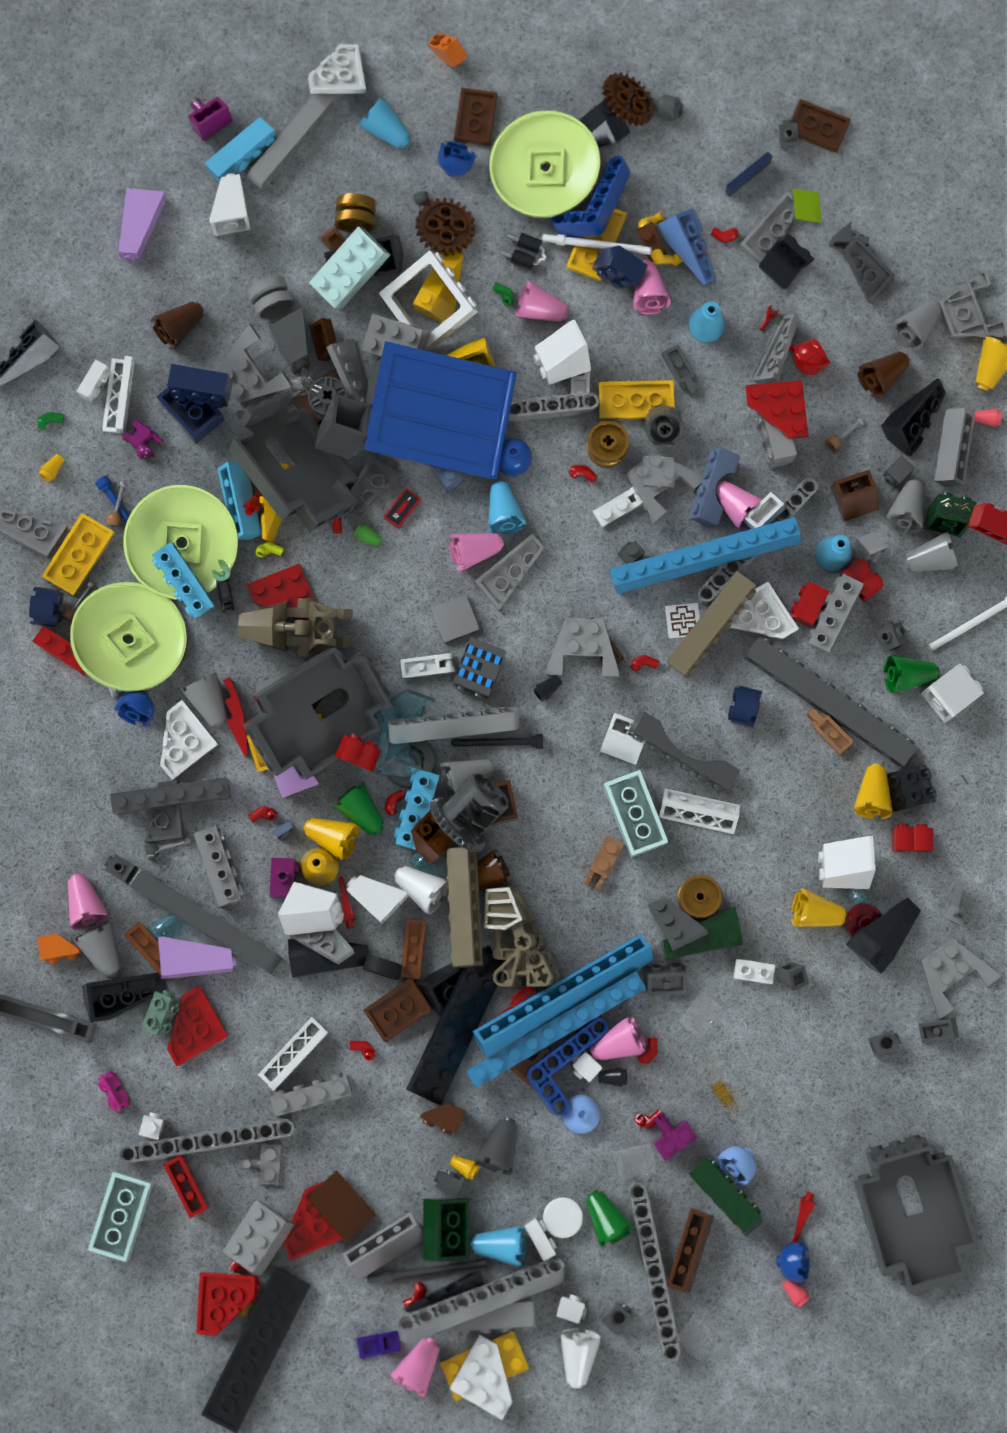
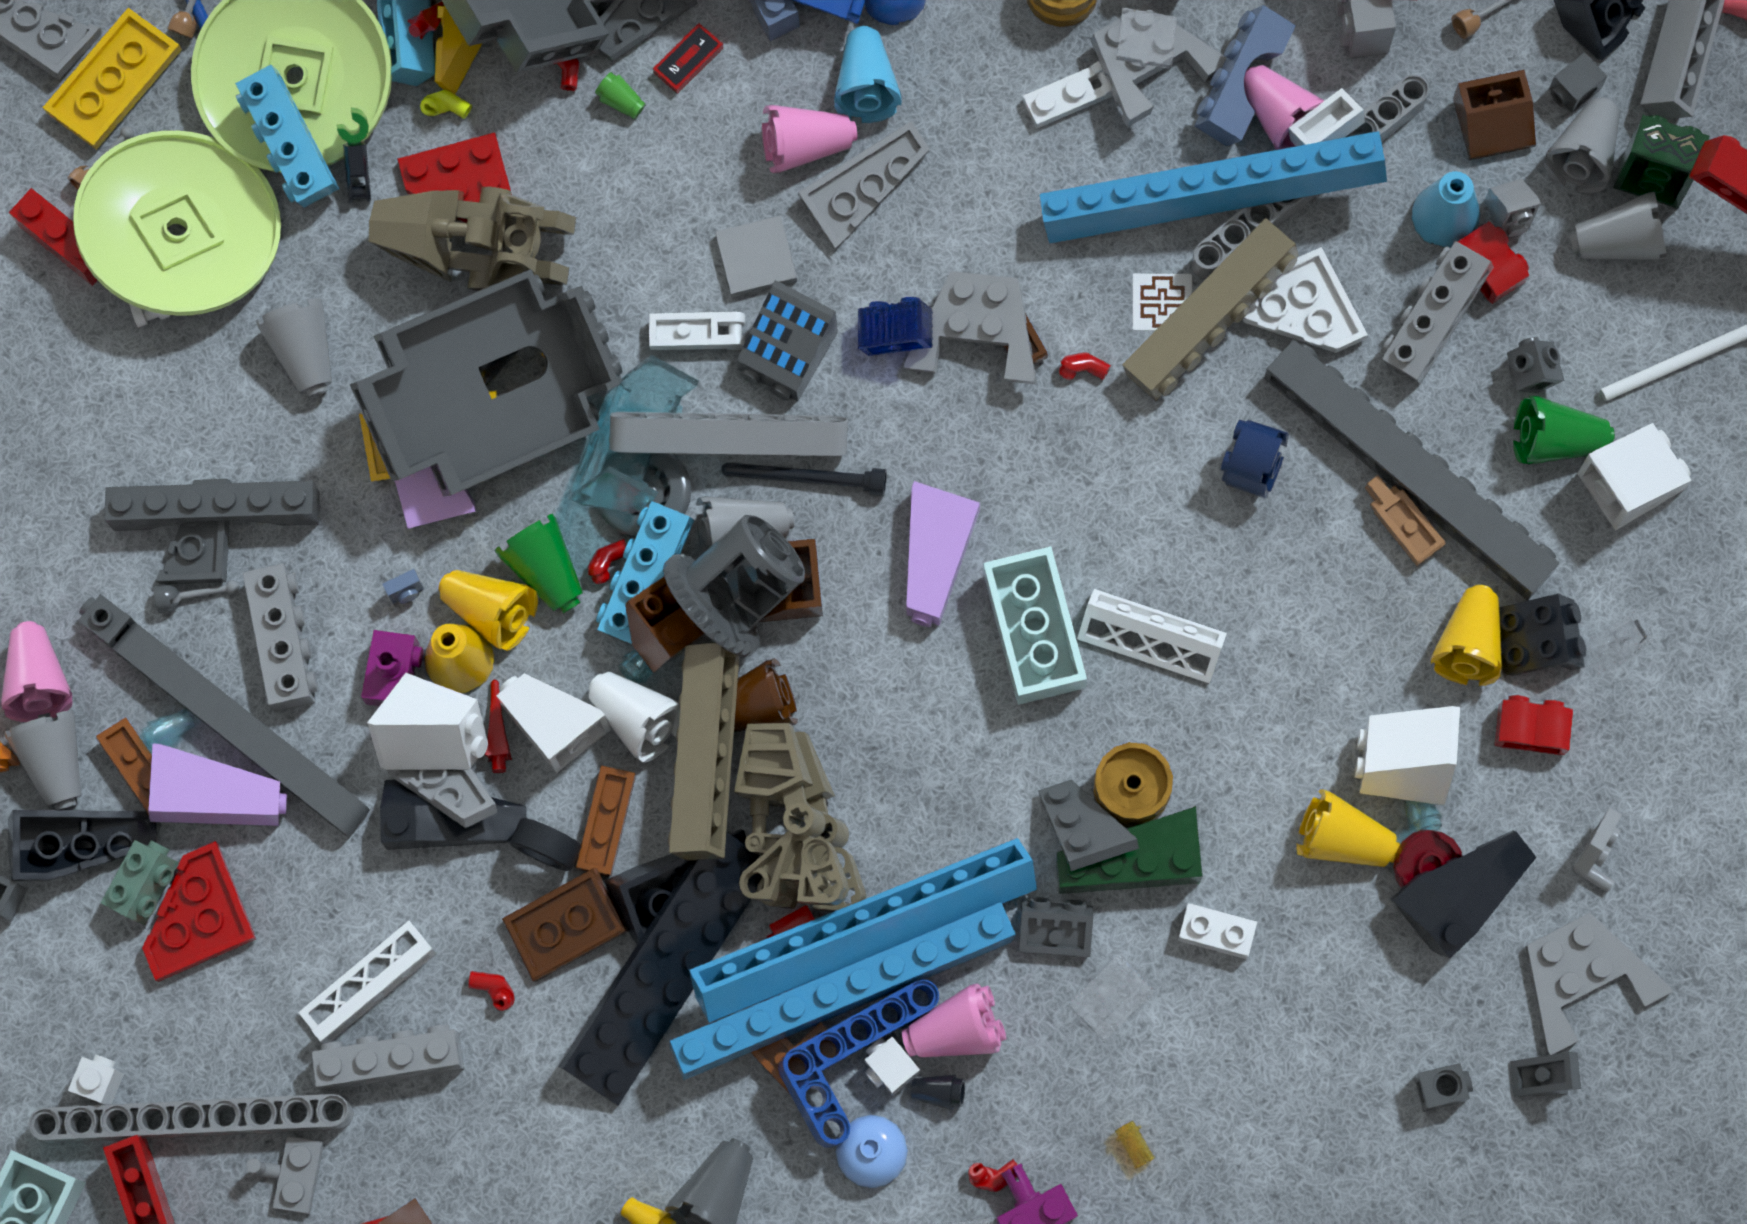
camera: 15 degrees right, 5 degrees down
(45, 606) = (41, 157): dark blue brick -> none
(109, 1086) = (39, 1025): dark pink hinge -> none
(135, 707) = (167, 342): blue cylinder -> none
(183, 741) = (249, 414): white plate -> none
(236, 723) = (349, 369): red slope -> none
(263, 812) = (373, 553): red arm -> none
(358, 753) = (551, 459): red brick -> none
(445, 1116) = (623, 1122): reddish brown slope -> none
(538, 653) = (895, 326): none -> clear blue brick
(546, 688) = (904, 391): black cone -> none
(575, 772) = (937, 544): none -> lavender slope
(582, 470) = (1015, 25): red arm -> none
(604, 861) = (970, 705): medium nougat hinge -> none
(619, 742) = (1032, 492): white slope -> none
(631, 552) = (1082, 170): dark grey brick -> none
(650, 730) = (1078, 480): dark grey arch -> none
(650, 1053) = (1010, 1057): red arm -> none
(792, 975) = (1286, 944): dark grey brick -> none
(809, 604) = (1390, 294): red brick -> none

